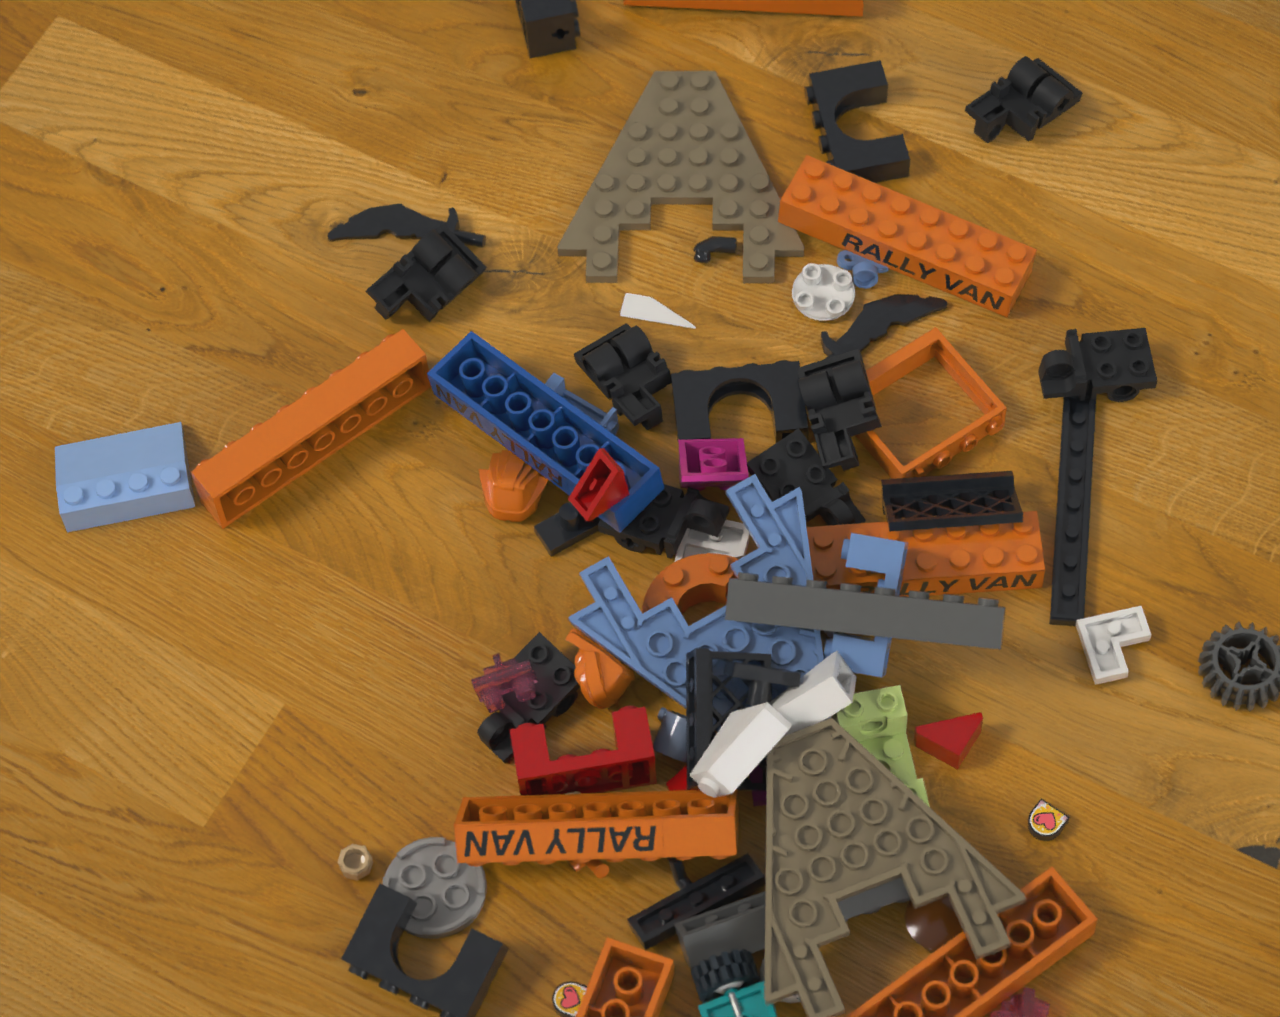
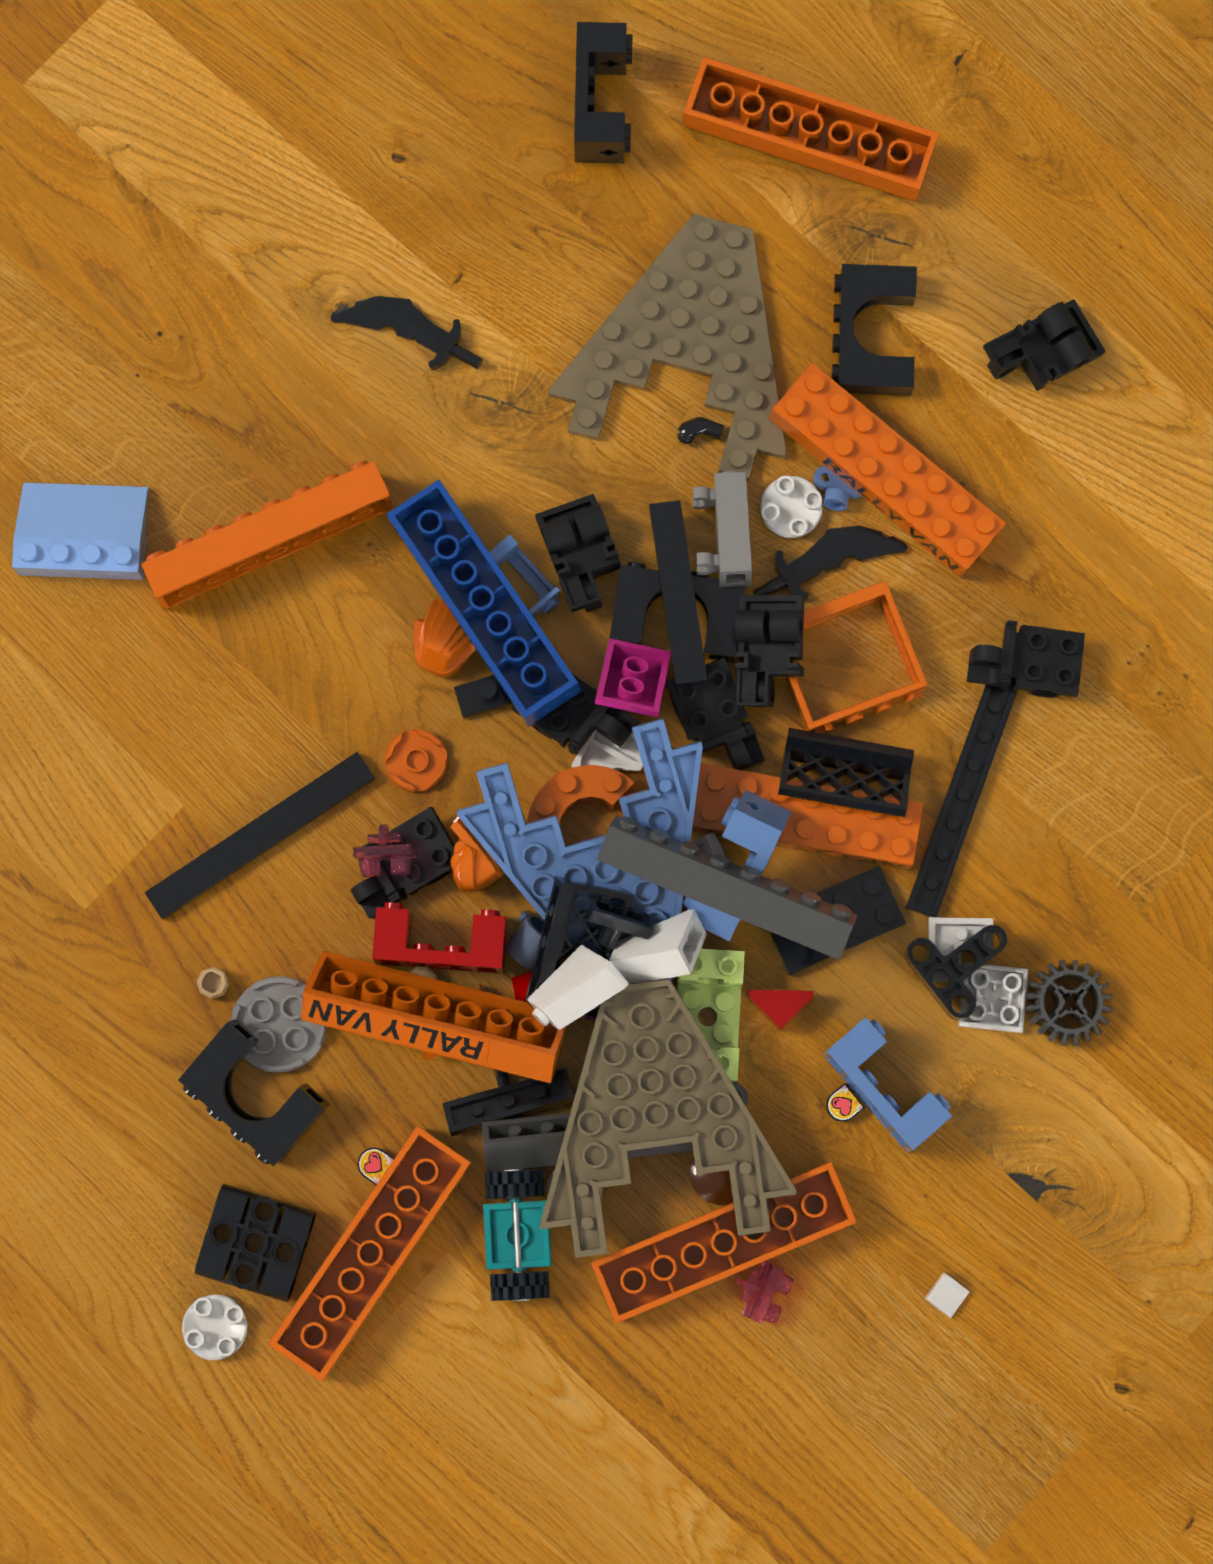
camera: 10 degrees right, 20 degrees up
(369, 712) = (259, 835): none -> black tile
(428, 275) = (420, 393): black plate -> none
(513, 604) = (416, 760): none -> orange tile
(599, 486) = (513, 693): red slope -> none
(651, 310) = (620, 479): white sticker -> none
(736, 383) = (678, 593): none -> black tile
(772, 318) = (732, 529): none -> light grey brick
(963, 672) = (867, 897): none -> black plate
(1040, 773) = (917, 1121): none -> medium blue plate
(1114, 655) = (952, 969): none -> black beam
(1166, 683) = (998, 998): none -> white tile
(1214, 981) = (946, 1295): none -> white slope

